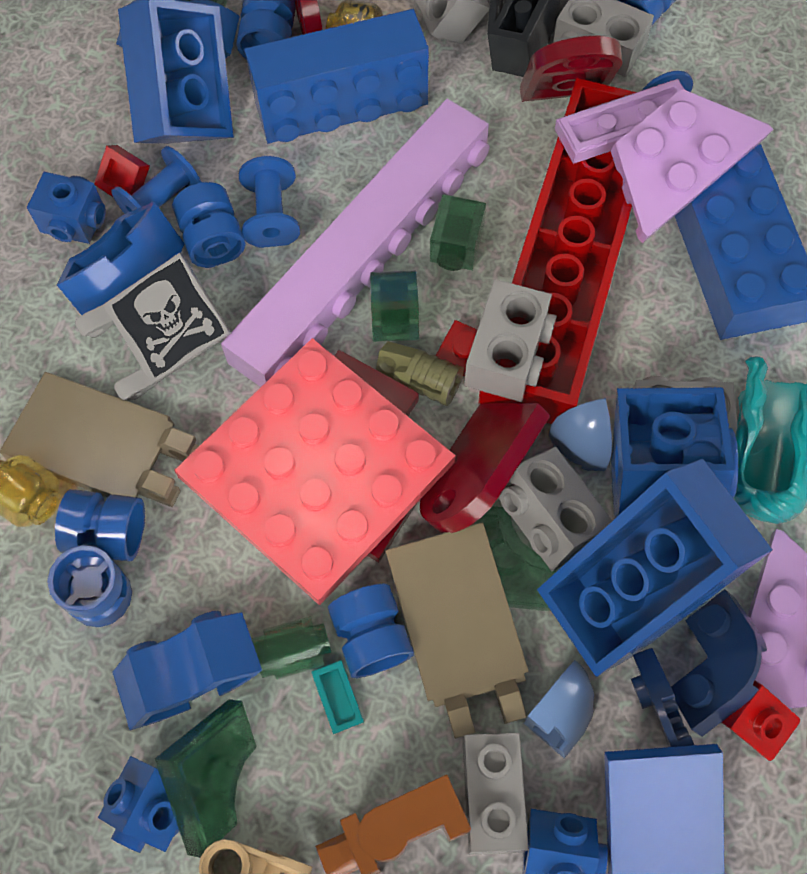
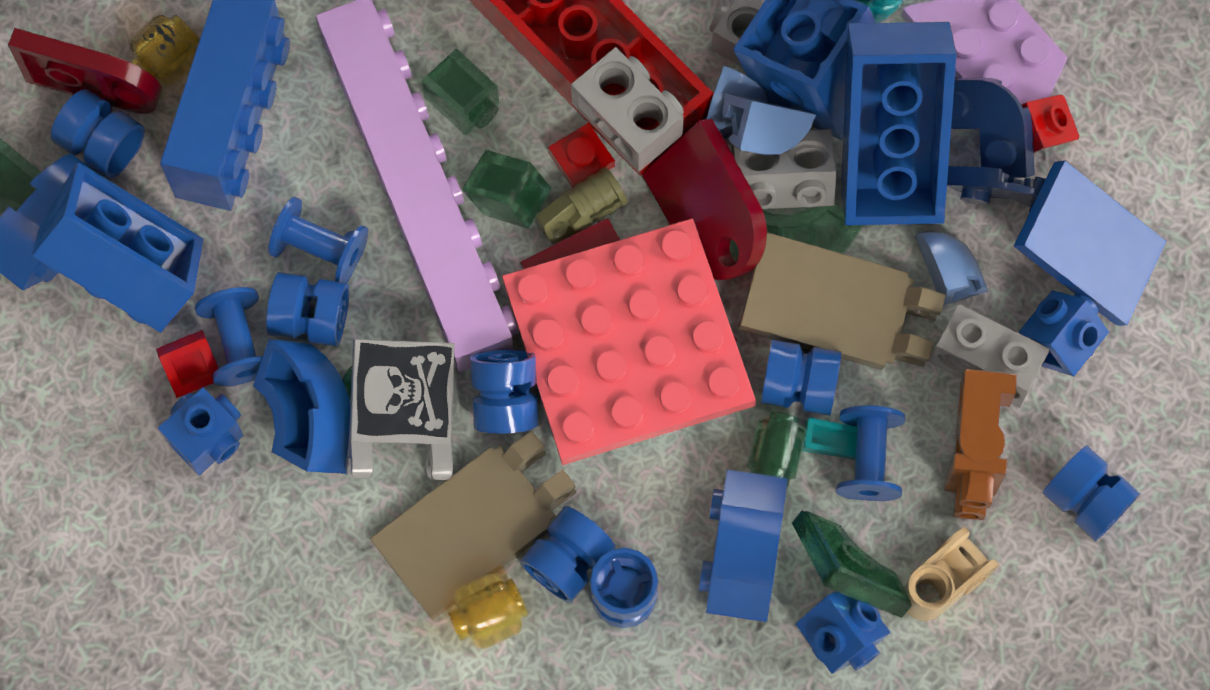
camera: 60 degrees left, 5 degrees up
(216, 393) = (504, 395): none -> blue wheel
(332, 735) = (870, 453): none -> blue piece
(576, 464) = (765, 126): none -> medium blue brick

